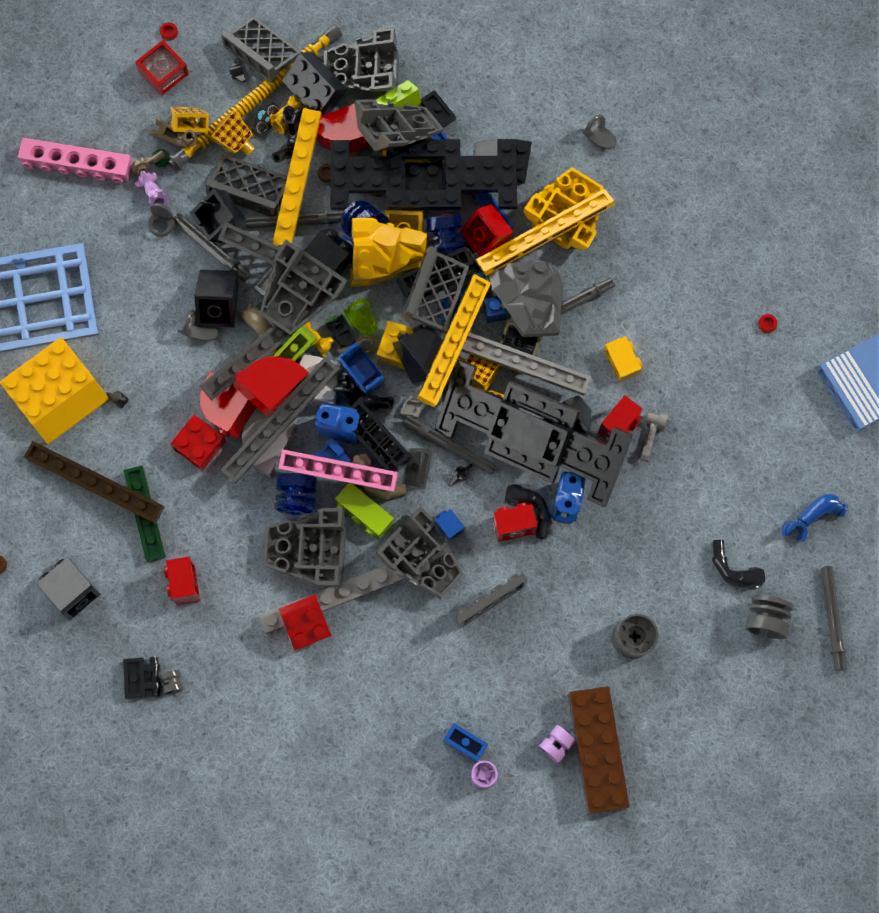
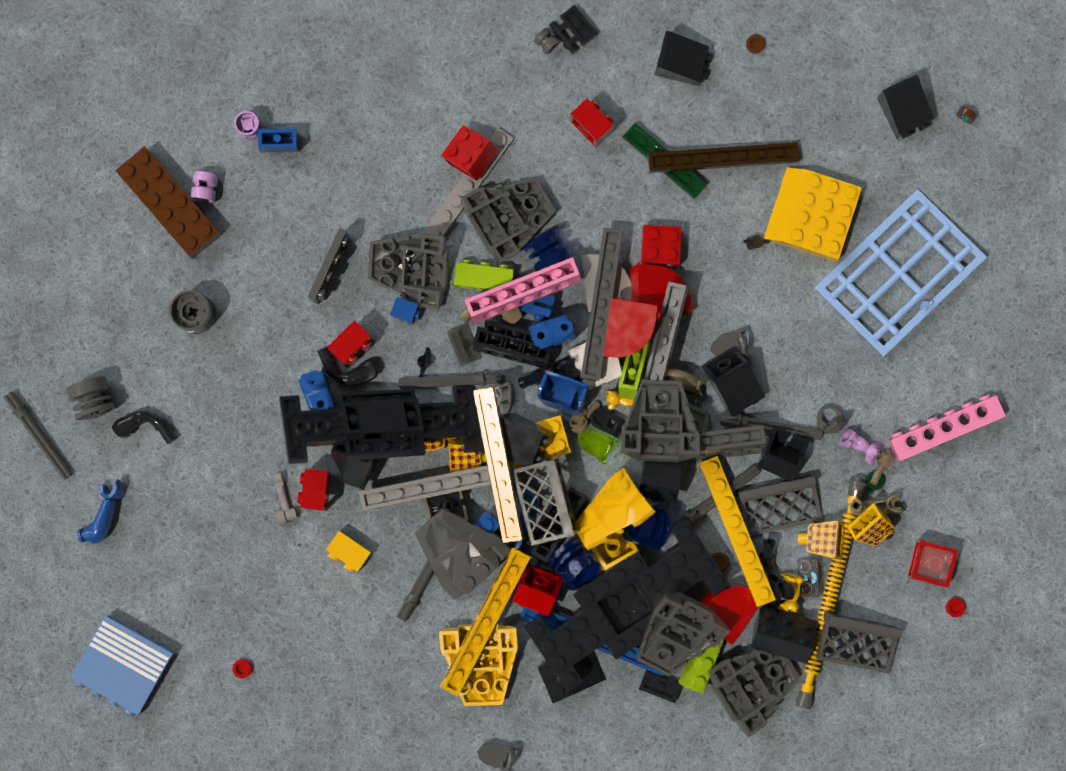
camera: 145 degrees right, 10 degrees up
(236, 71) = (865, 606): black piece -> none

